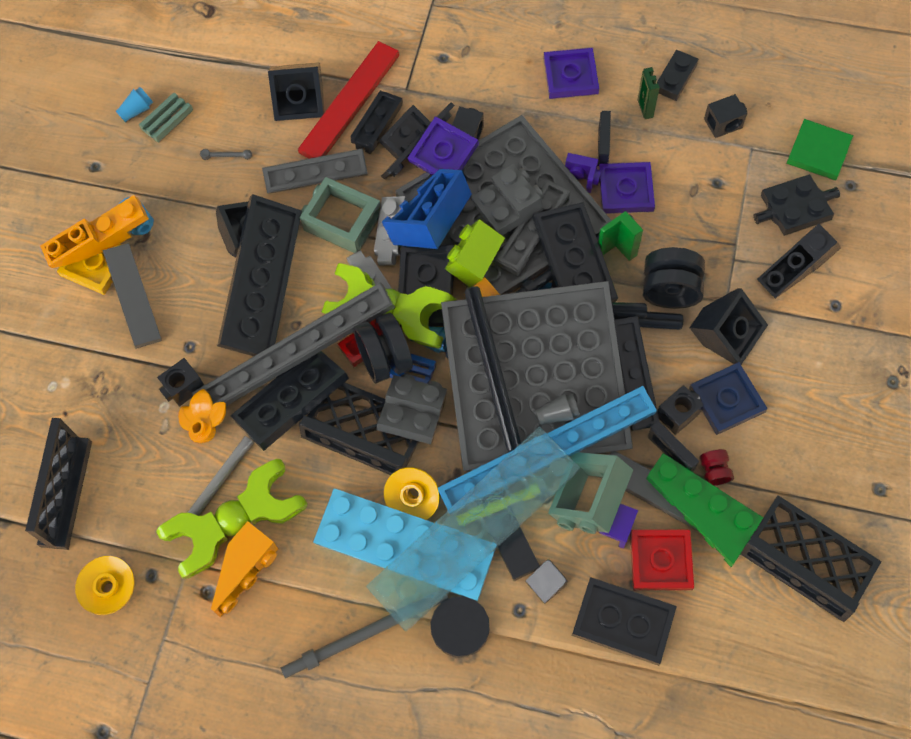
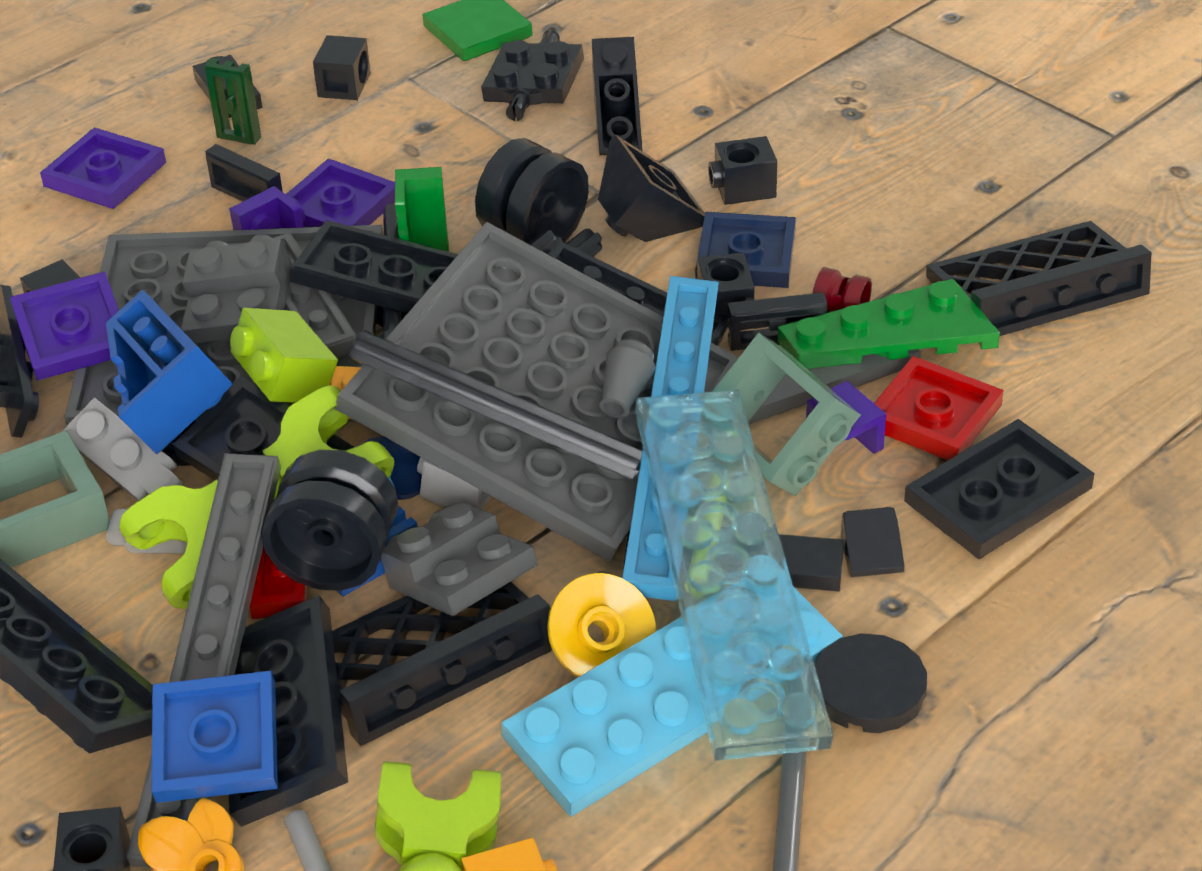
camera: 60 degrees left, 25 degrees down
(247, 387) = (214, 737): none -> blue plate
(786, 371) = (744, 170): none -> black brick

